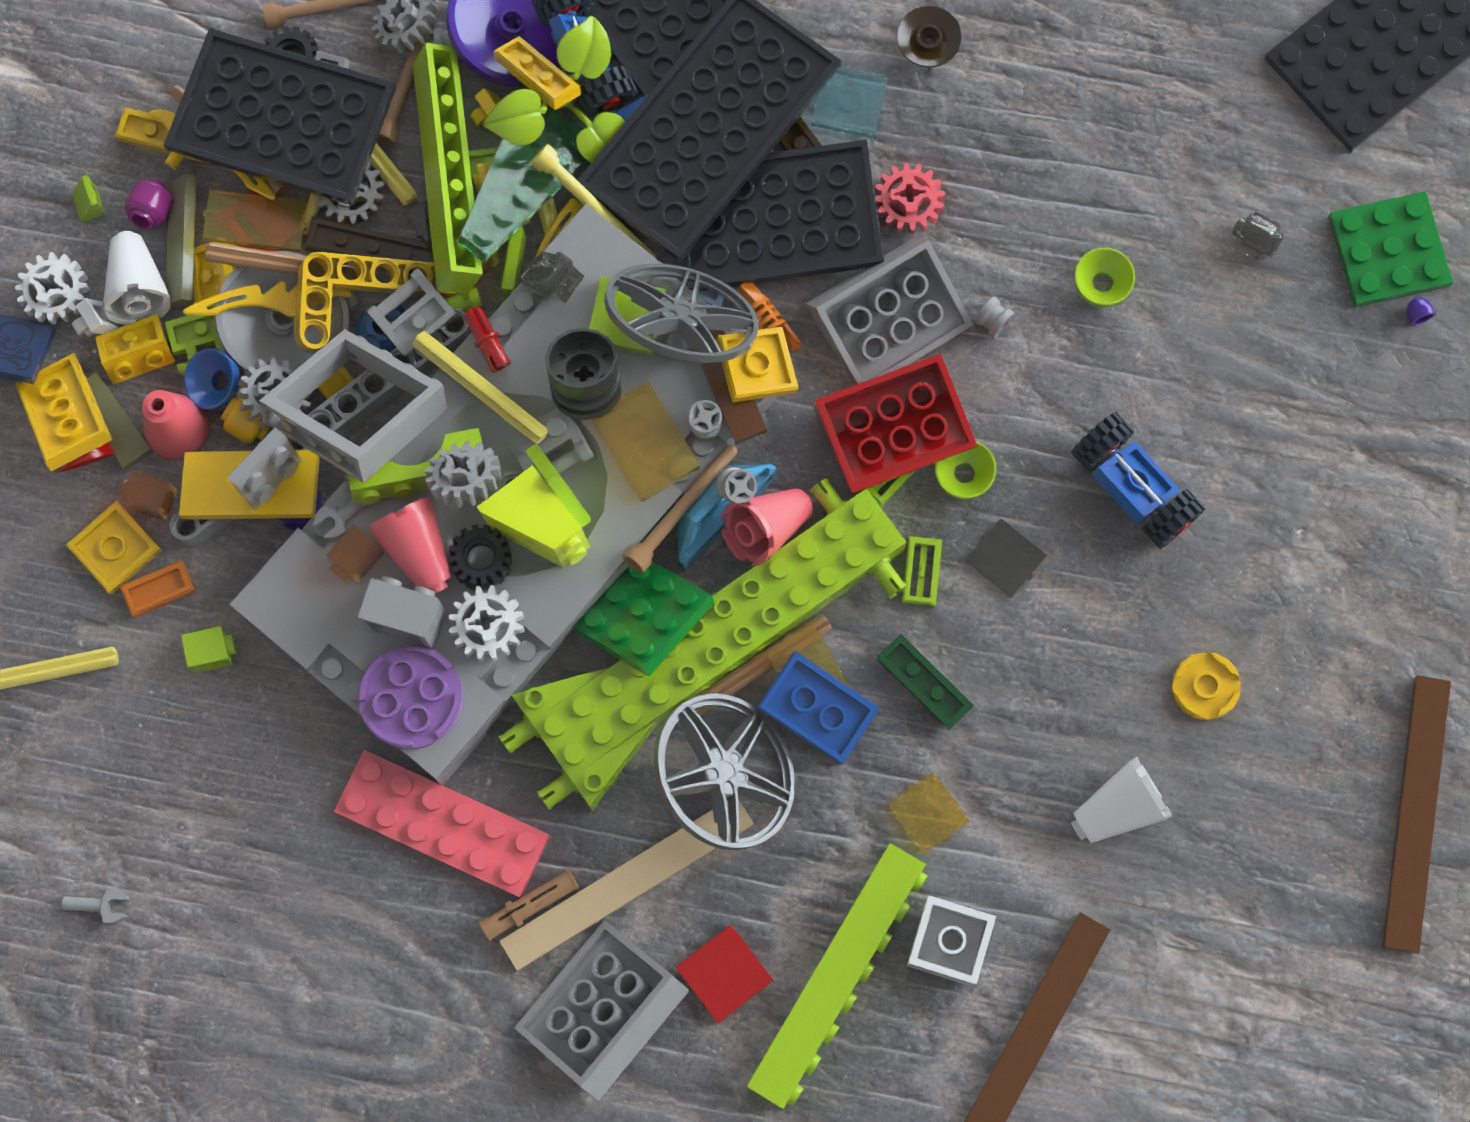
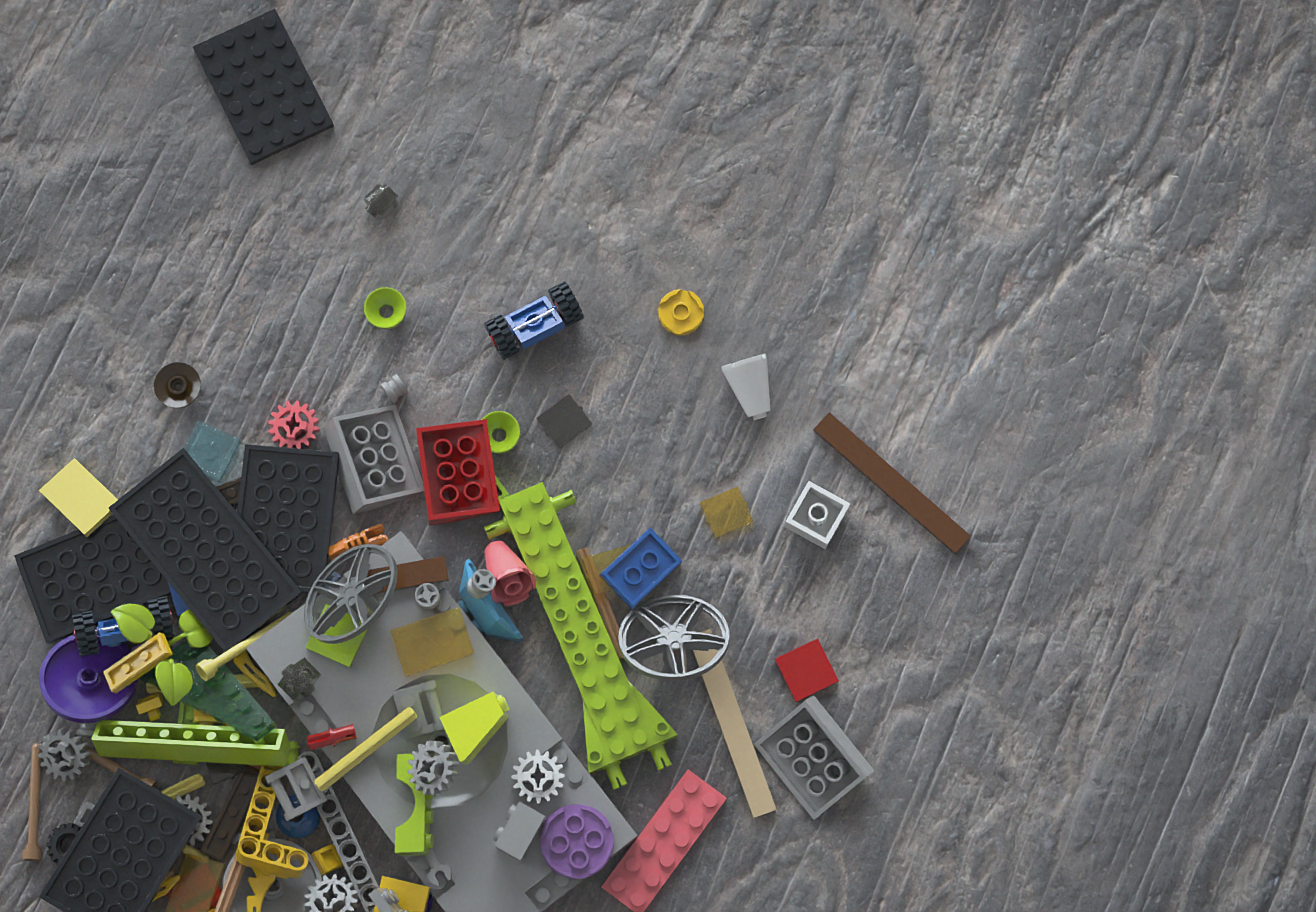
camera: 85 degrees left, 0 degrees up
(354, 555) = (468, 861): clear orange brick -> none
(384, 444) = (383, 864): light grey window -> none
(415, 544) = (471, 814): coral cone -> none
(480, 537) = (476, 765): black tyre -> none
(513, 262) = (279, 715): lime tile -> none
(521, 909) = (743, 820): medium nougat pin -> none
(558, 485) = (451, 705): lime tile -> none
(583, 373) = (368, 663): pearl dark grey wheel -> none
(640, 555) = (512, 662): medium nougat piece -> none
(644, 616) = (552, 670): green plate -> none
(762, 370) = (403, 546): yellow tile -> none
(836, 976) = (823, 595): lime brick -> none
(919, 600) = (577, 493): lime tile -> none
(924, 682) = (638, 493): dark green plate -> none
(1390, 249) = (410, 119): green plate -> none
(1416, 815) = (793, 201): reddish brown tile -> none
(1419, 311) = (458, 111): dark purple hinge -> none

